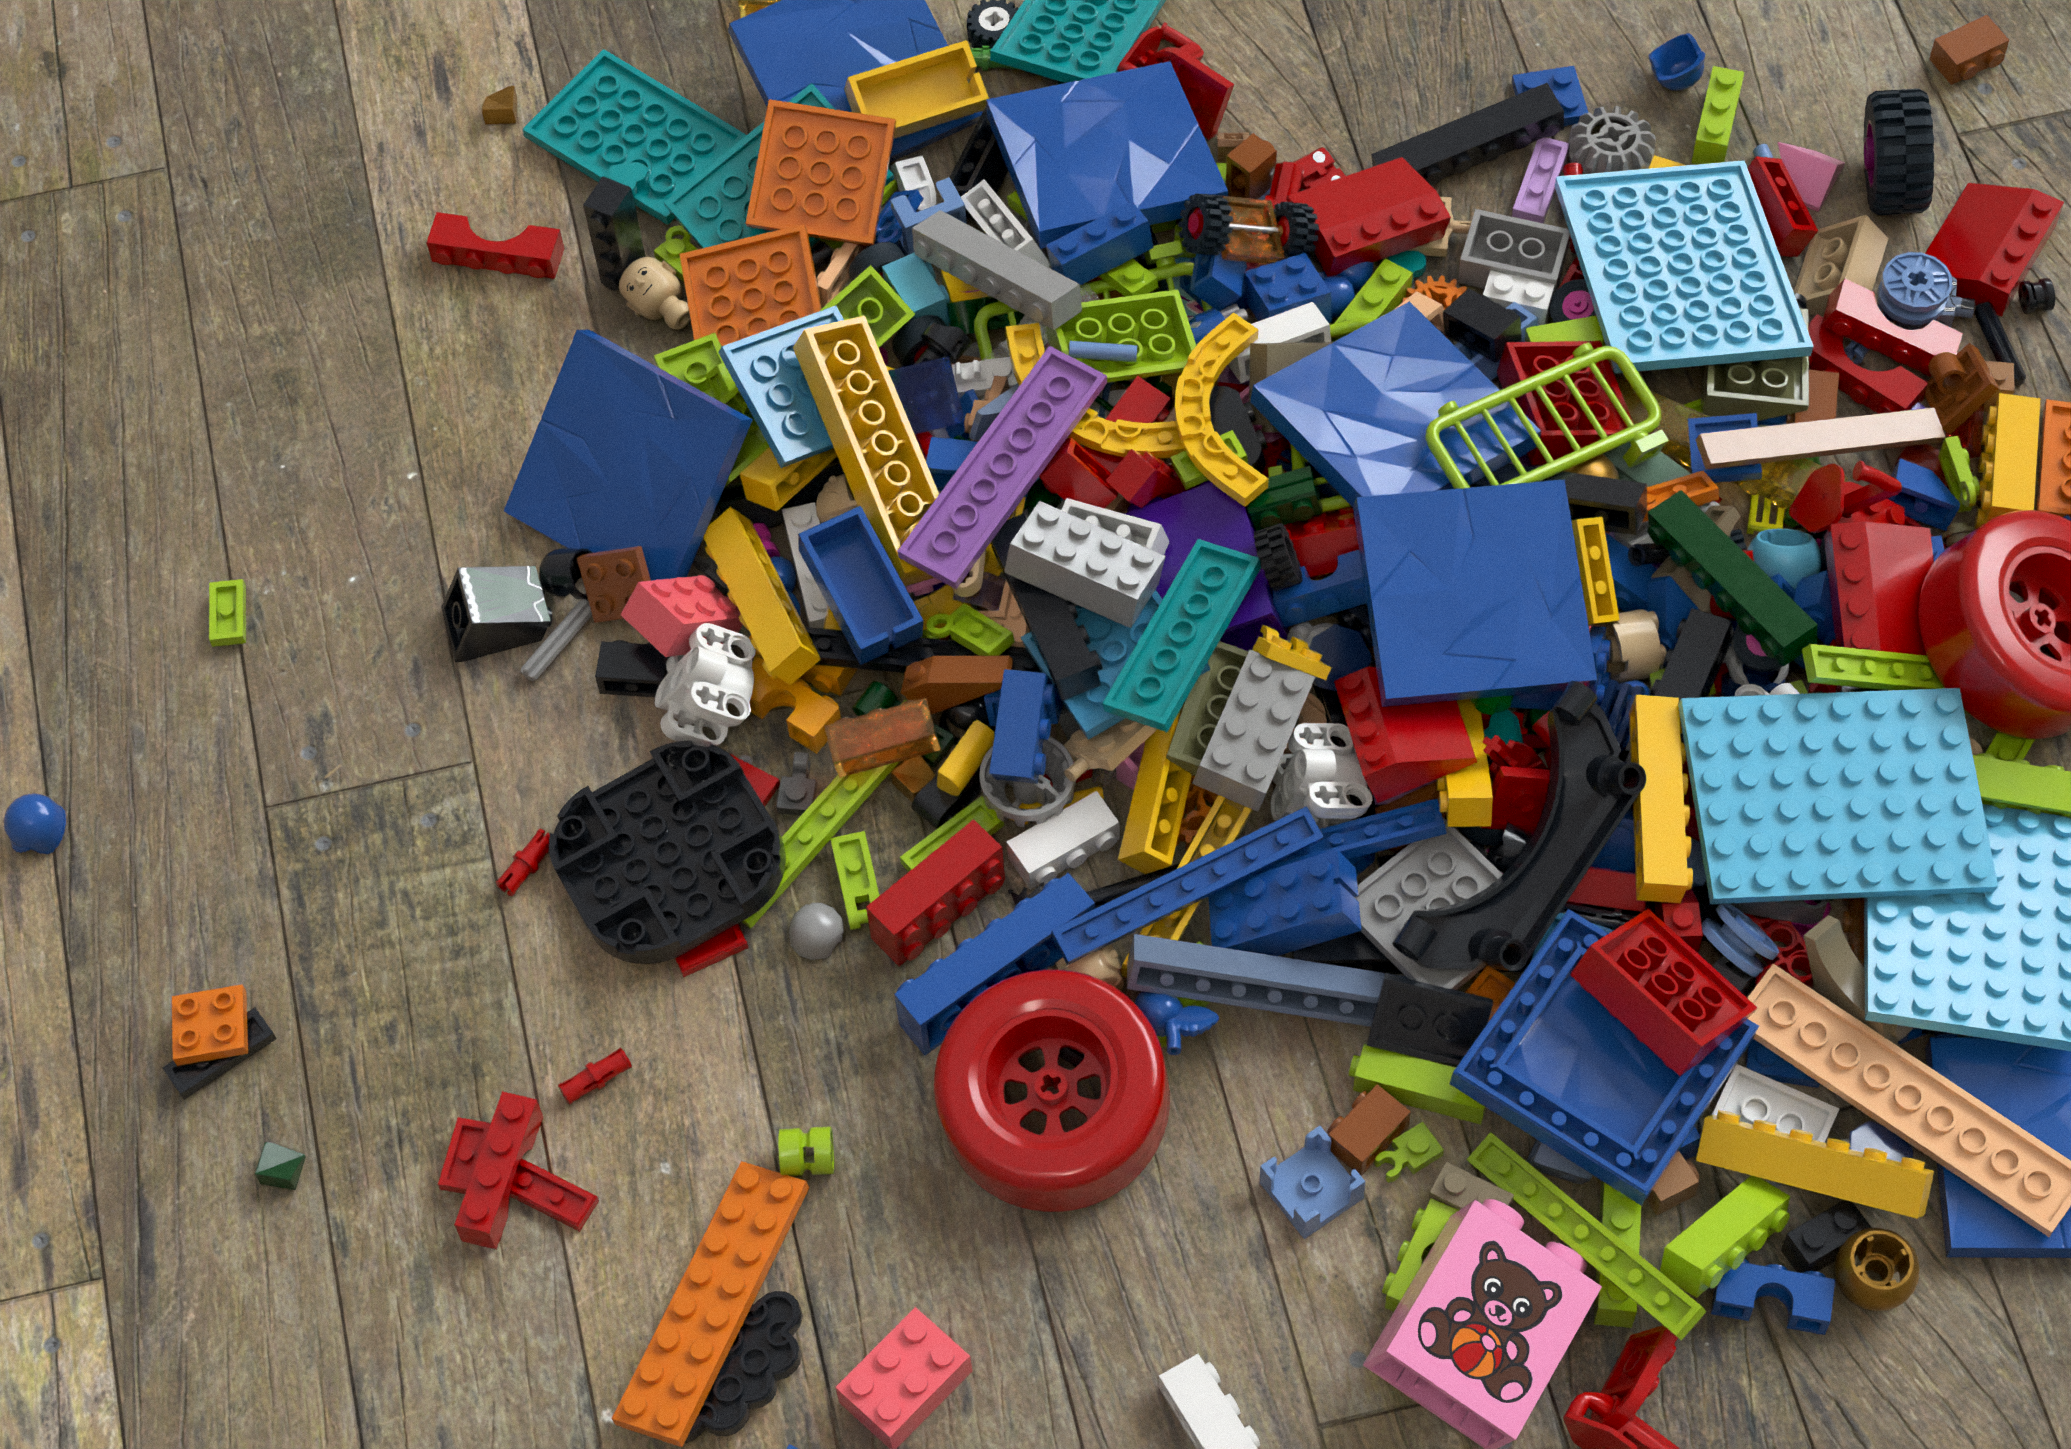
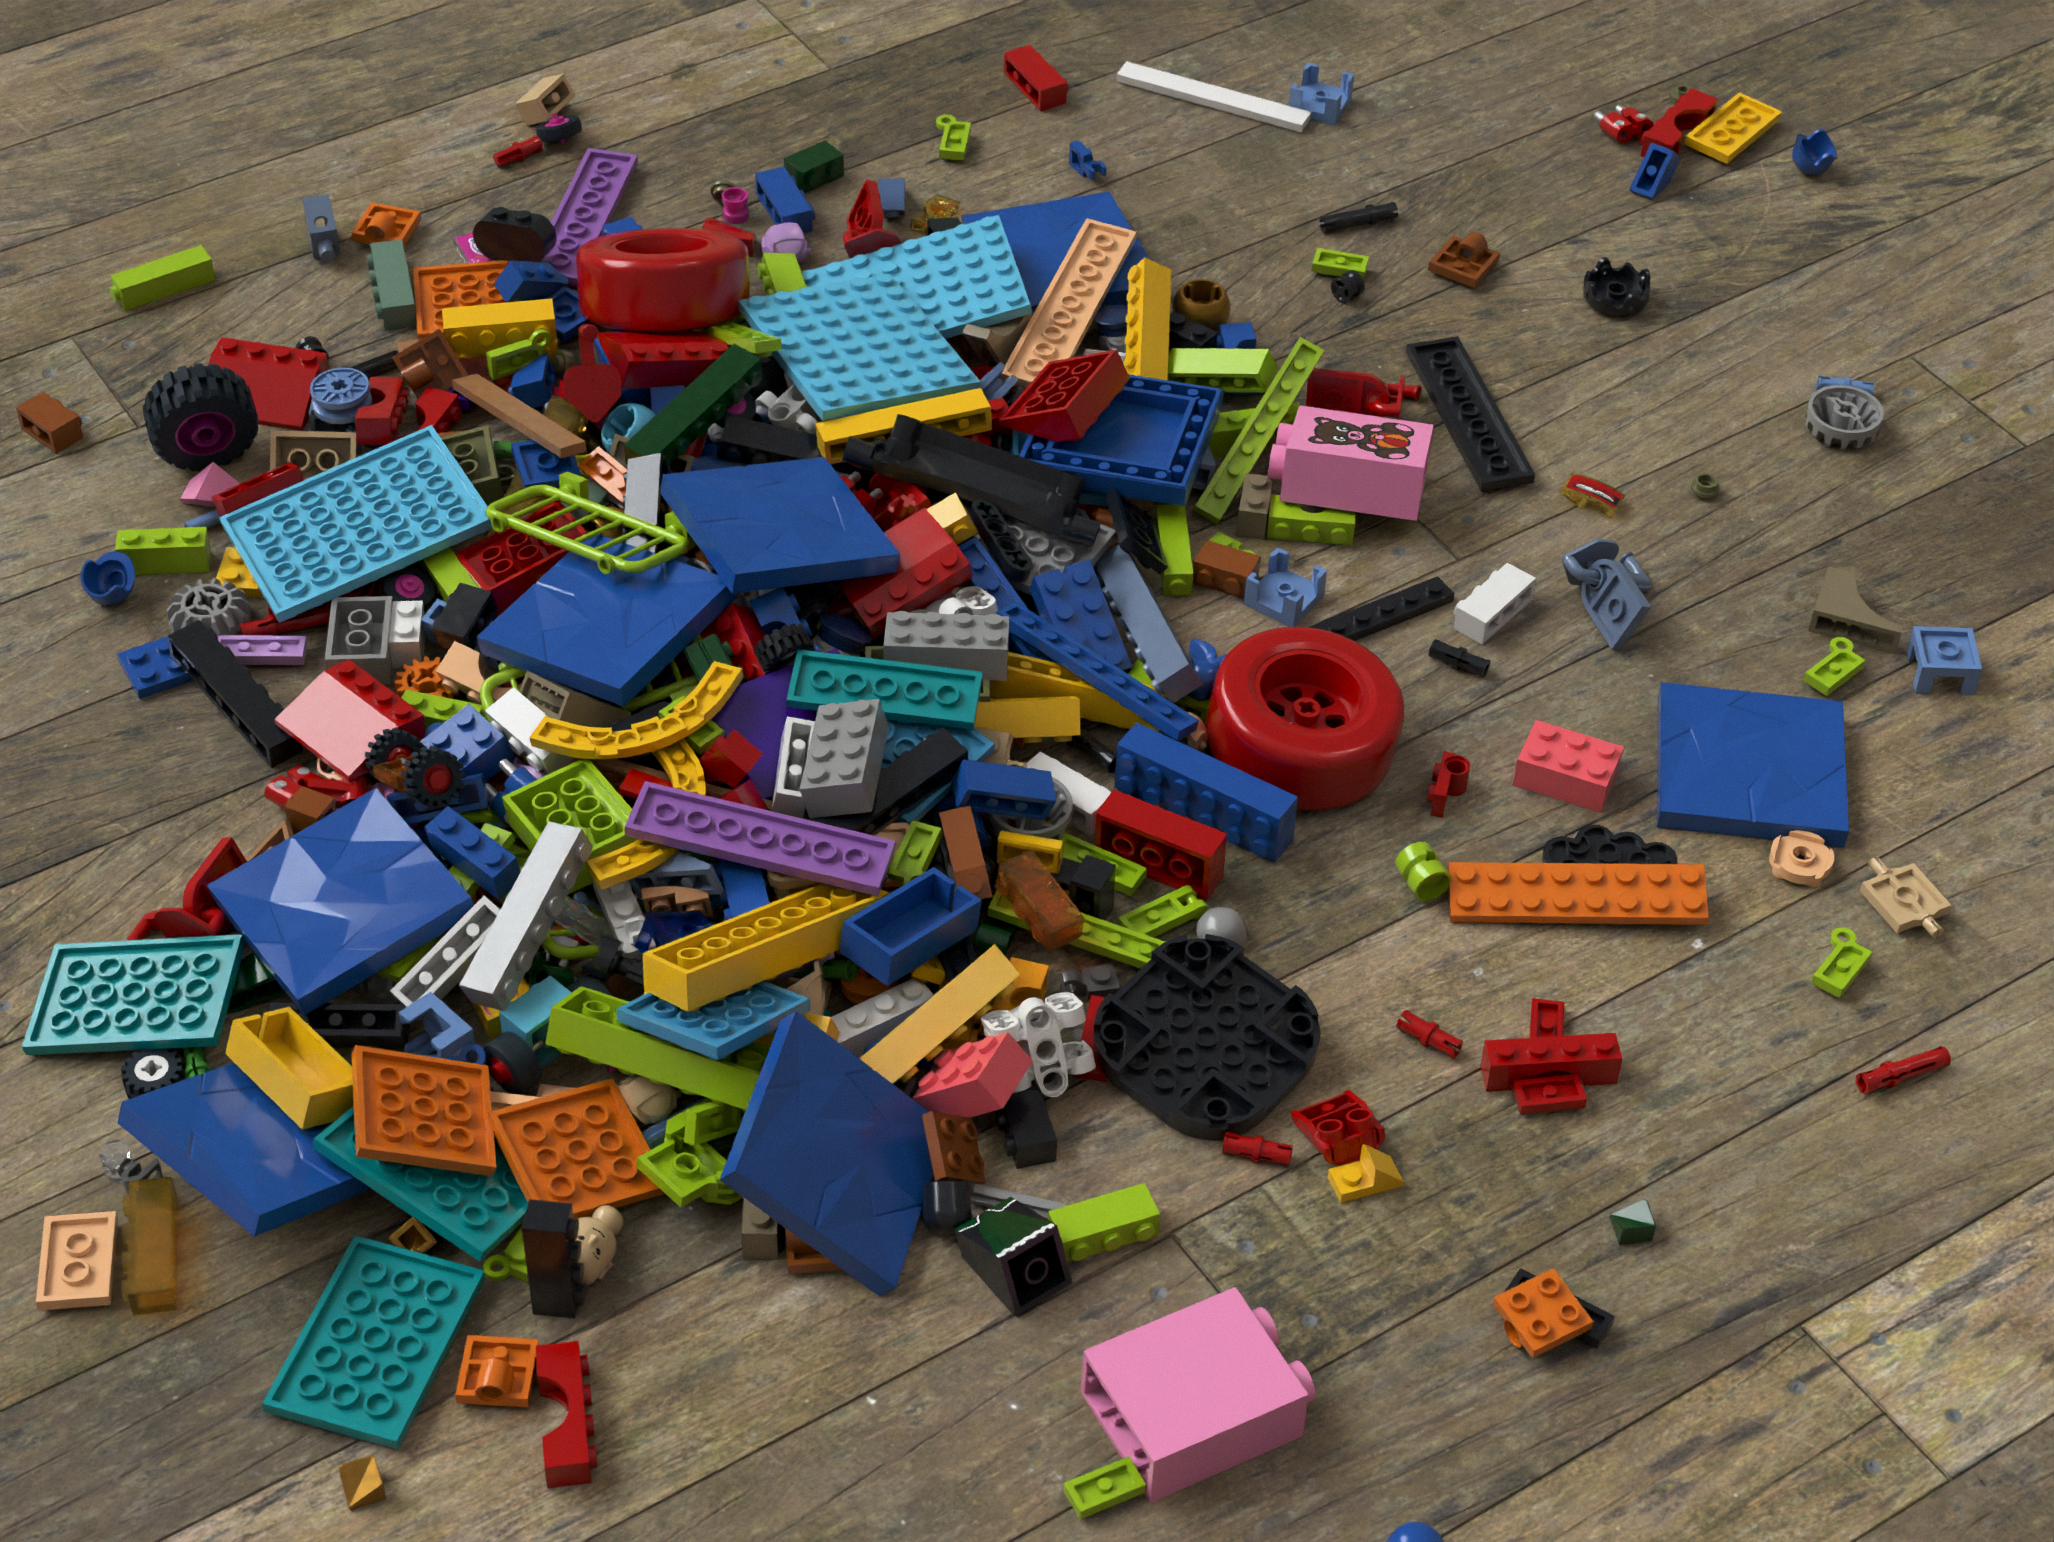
camera: 115 degrees left, 15 degrees down
(267, 698) = (1196, 1392): none -> bright pink brick
(450, 948) = (1365, 1177): none -> yellow slope
(495, 698) = (1106, 1222): none -> lime brick
(512, 937) = (1340, 1127): none -> red slope
(558, 206) = (497, 1371): none -> orange plate
(630, 174) = (448, 1312): teal tile -> none
(893, 806) = (1094, 887): none -> black brick
(920, 1222) = (1451, 780): none -> red plate
(1103, 351) = (604, 810): medium blue piece -> none
(1133, 1341) = (1459, 658): none -> black pin
(1234, 1243) = (1390, 610): none -> black plate
(1299, 657) = (870, 636): yellow plate -> none
(1443, 854) = (1004, 539): none -> black beam

